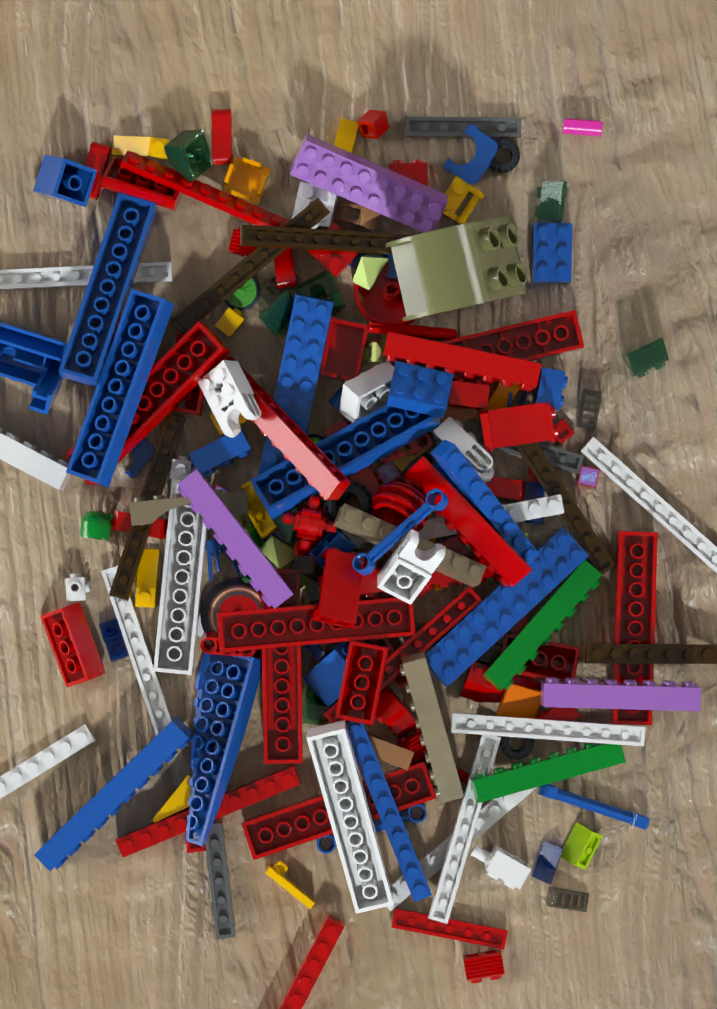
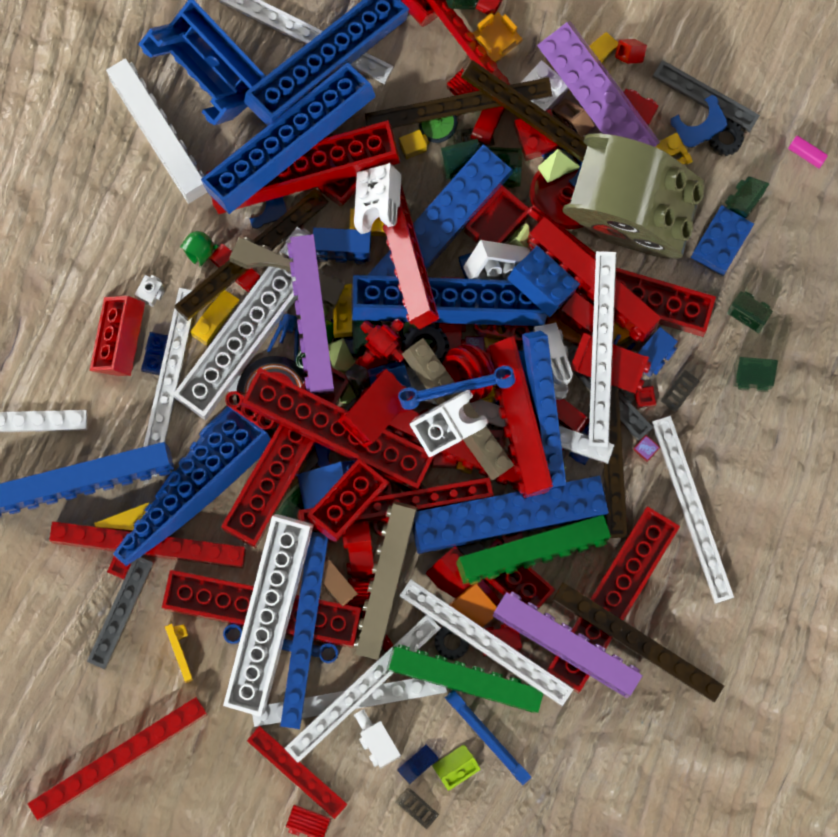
camera: 20 degrees right, 10 degrees down
(505, 420) = (602, 349): none -> white plate
(611, 302) = (750, 311): none -> clear green slope

